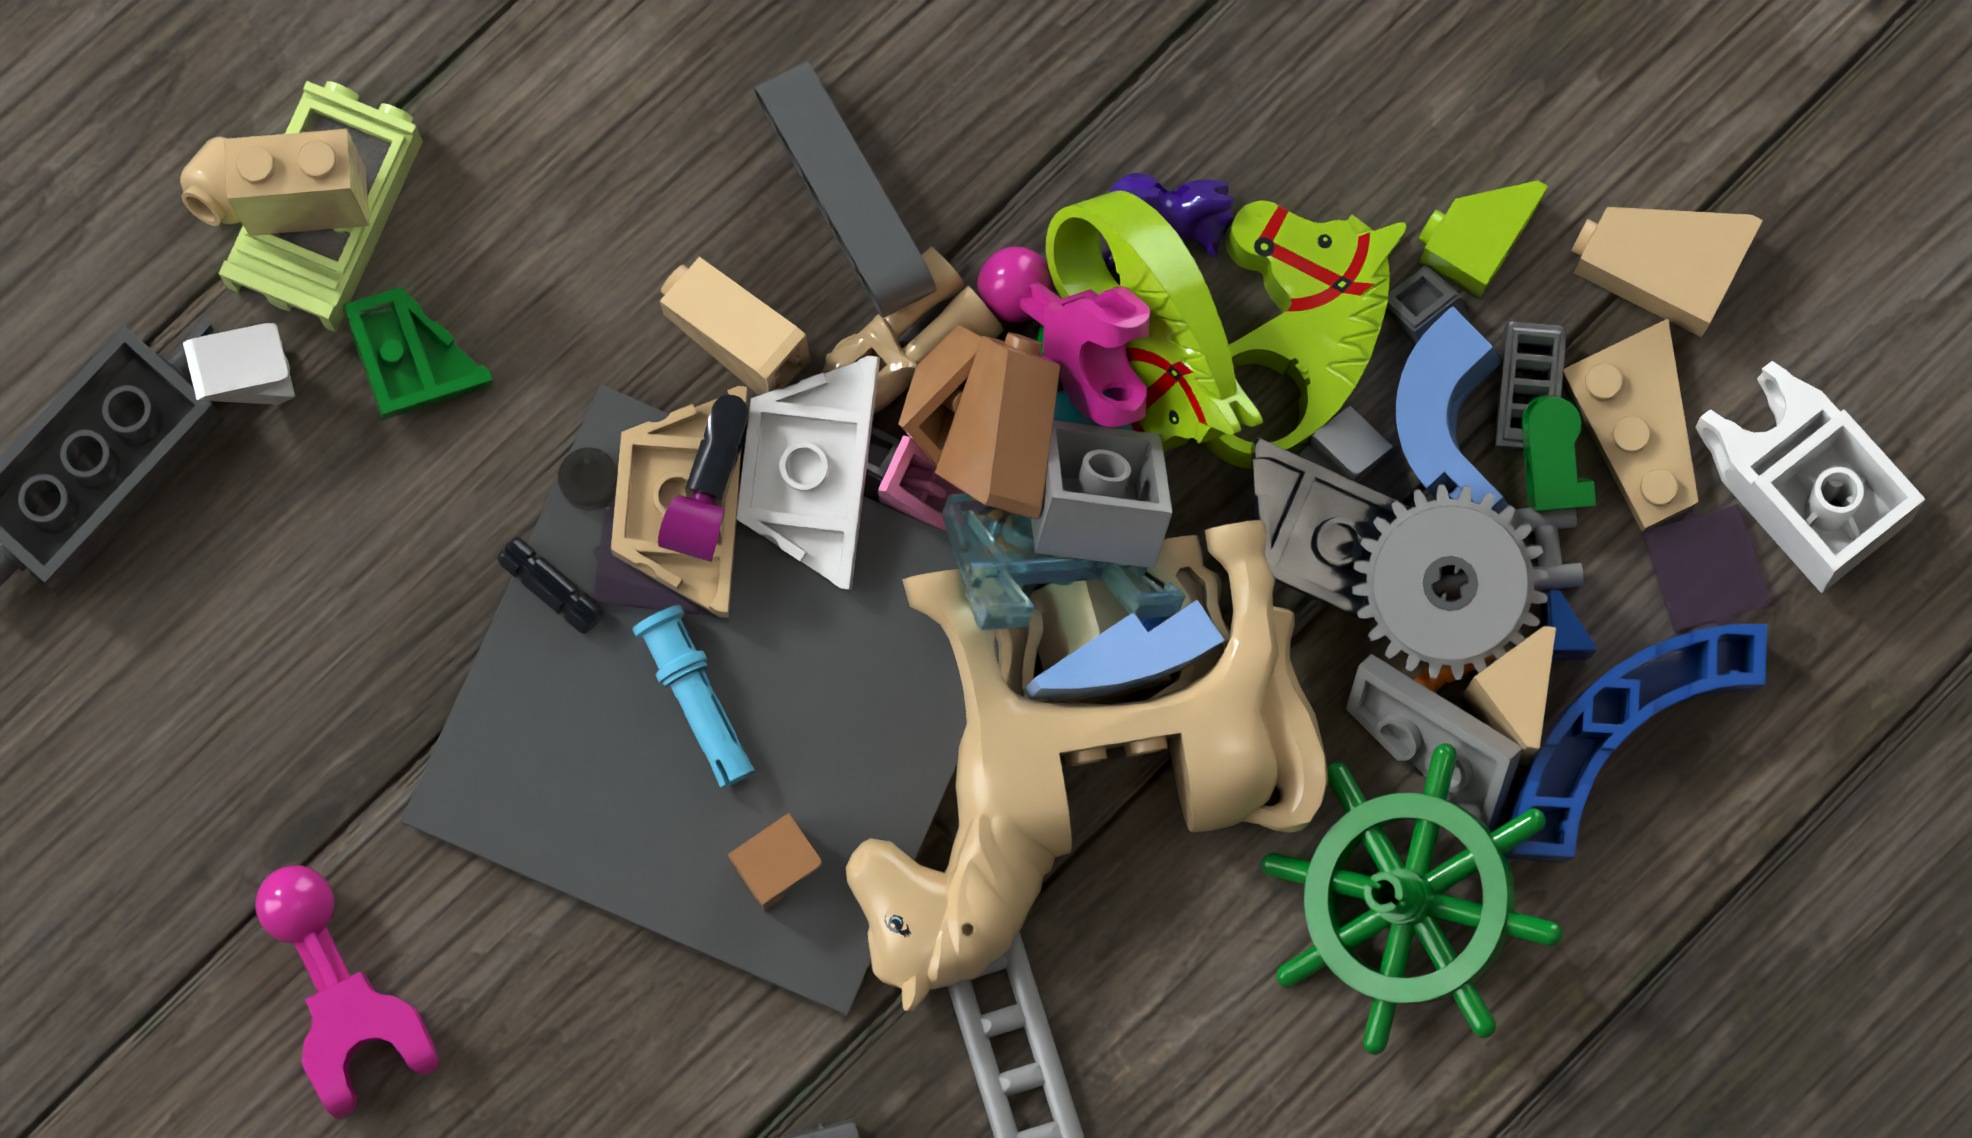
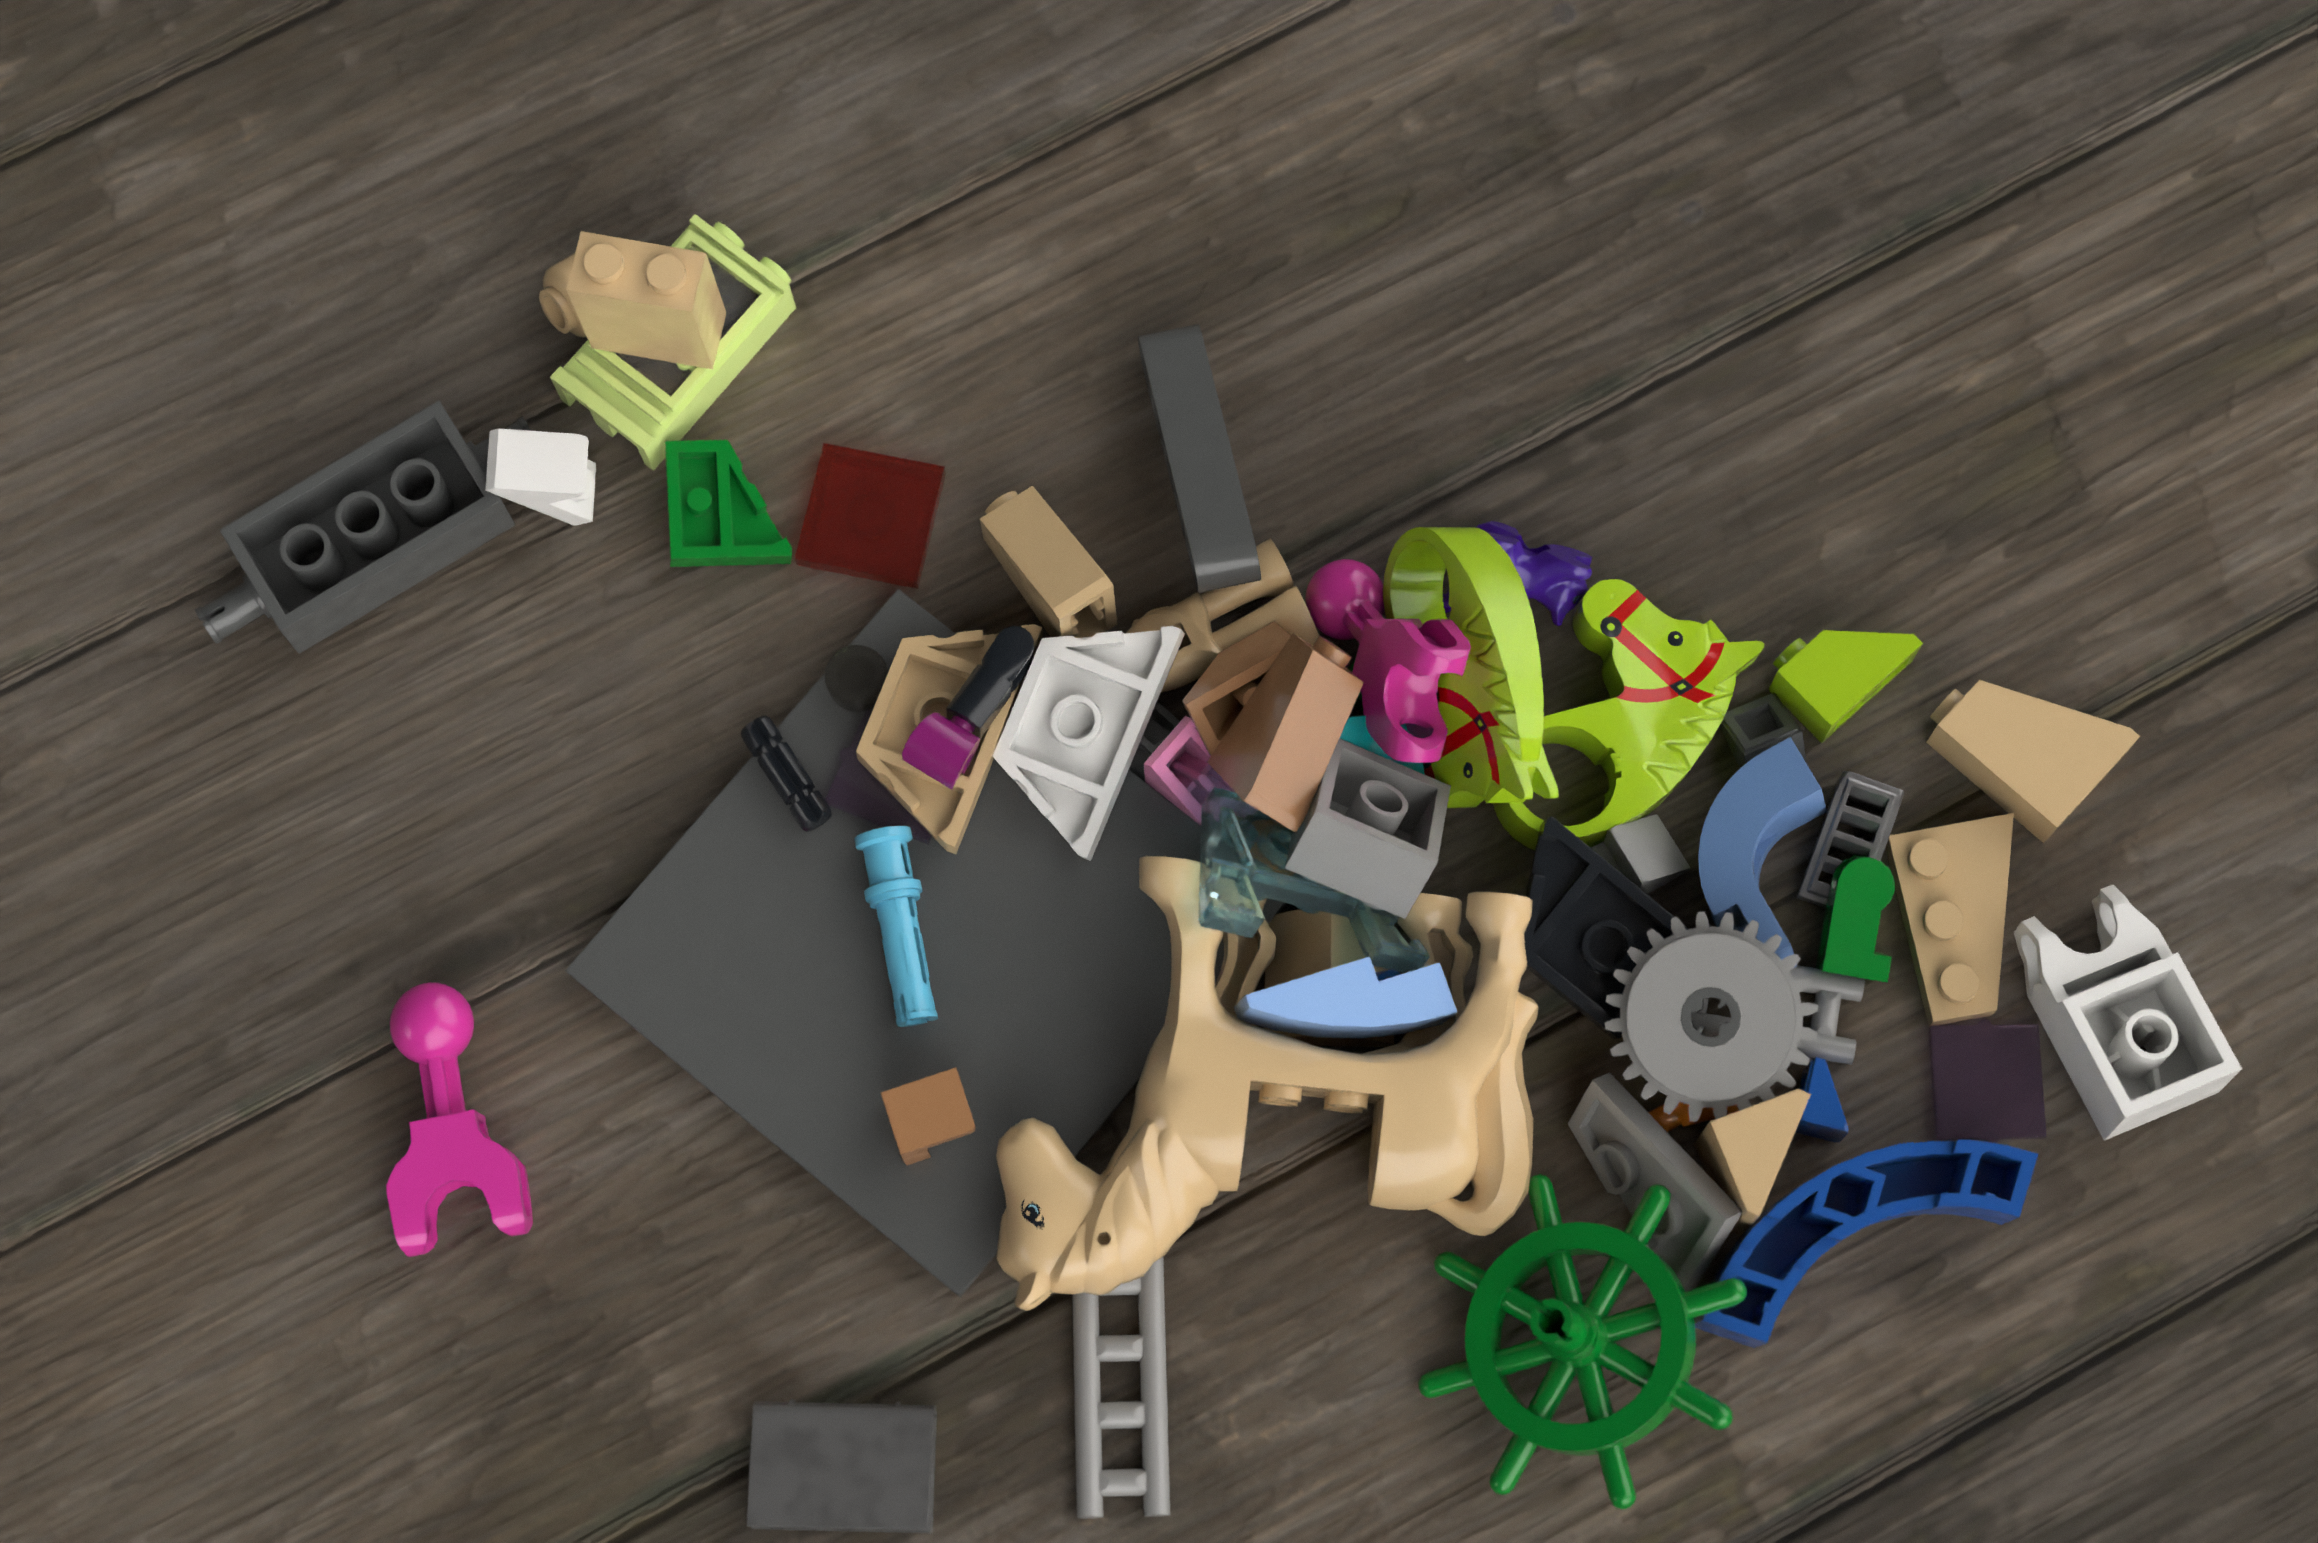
camera: 20 degrees right, 5 degrees down
(553, 321) = (870, 515): none -> clear red tile

